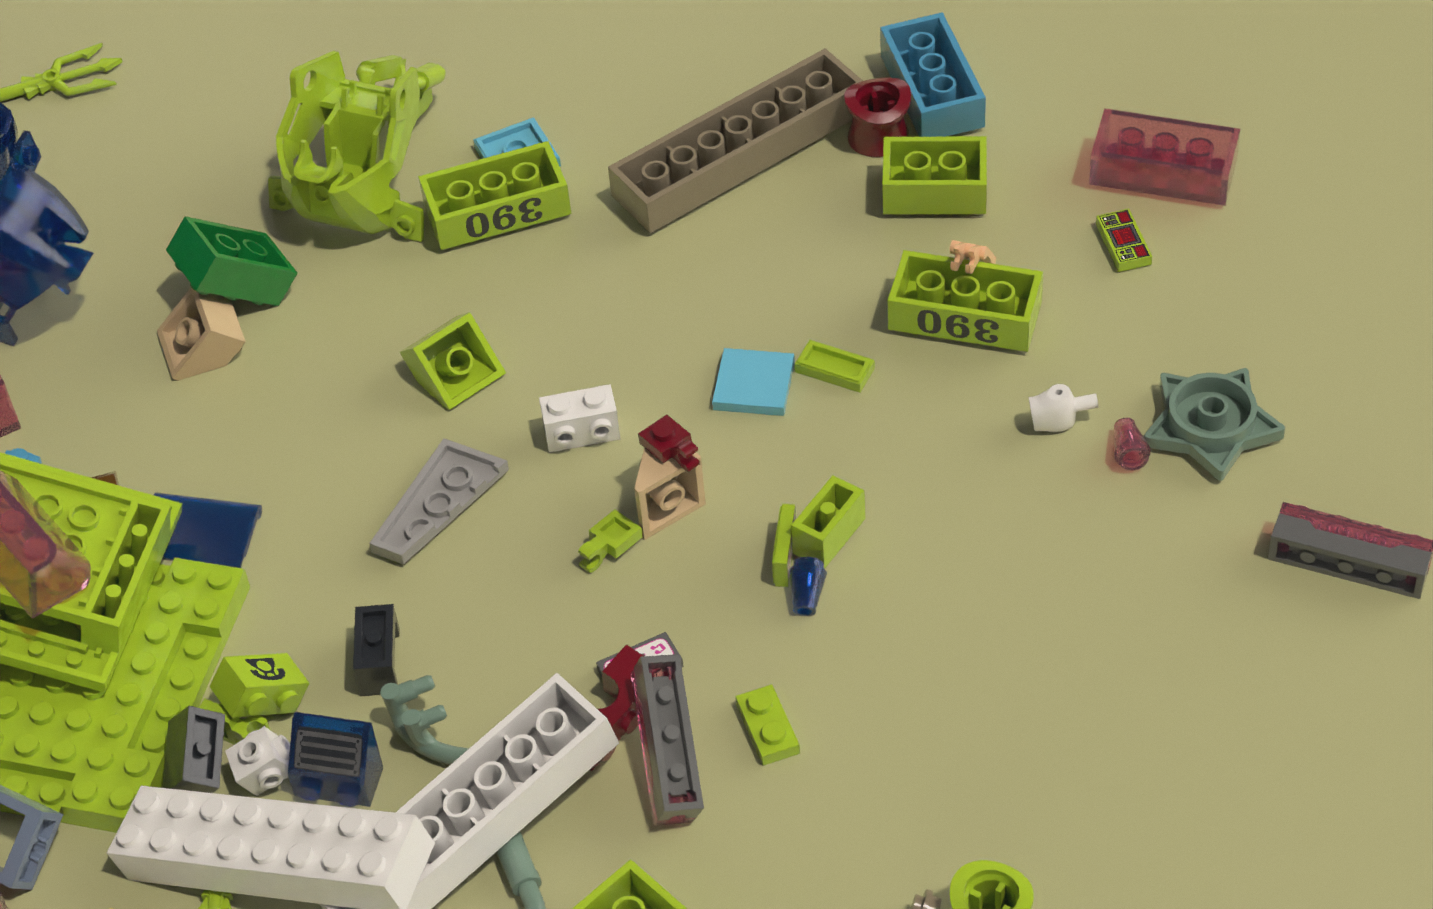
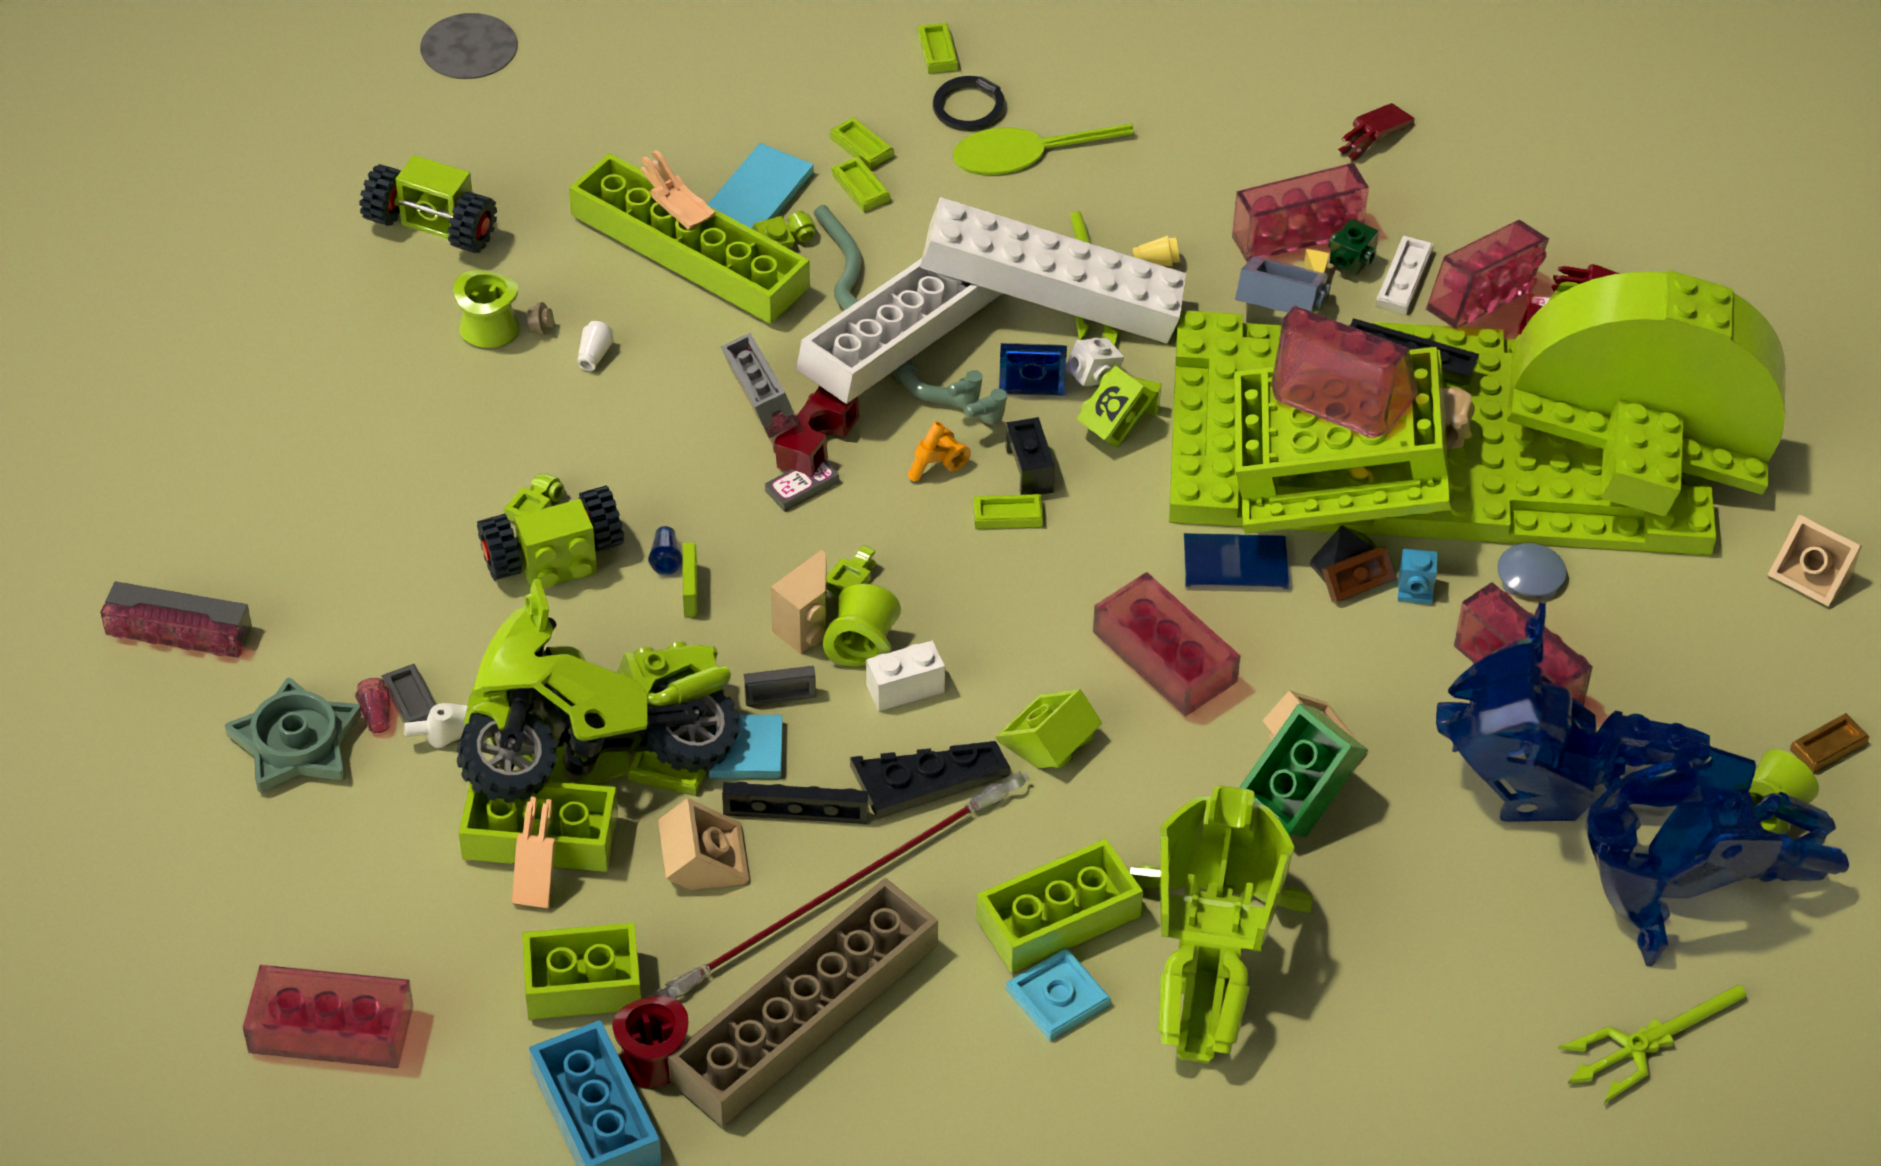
camera: 165 degrees right, 0 degrees up
(194, 750) = (1149, 352): black panel -> none
(309, 420) = (1166, 643): none -> clear pink brick
(424, 606) = (1007, 511): none -> lime tile
(438, 494) = (1021, 600): light grey wing -> none
(475, 666) = (938, 447): none -> light orange piece
(527, 311) = (990, 795): none -> piece
(586, 331) = (919, 778): none -> black wing
(609, 459) = (861, 625): none -> lime hat
(669, 440) = (802, 588): dark red plate -> none
(712, 423) = (780, 685): none -> dark grey tile
(715, 312) = (795, 802): none -> black plate
(767, 724) = (684, 445): lime plate -> none
(811, 277) = (702, 847): none -> tan slope
(828, 520) = (650, 590): lime brick -> none
(859, 865) = (594, 343): none -> white cone
(910, 356) = (586, 713): none -> piece
(929, 577) = (553, 541): none -> brick
(952, 652) = (539, 496): none -> lime plate
(1092, 459) = (409, 694): none -> dark grey tile
(1123, 240) = (376, 936): tile -> none

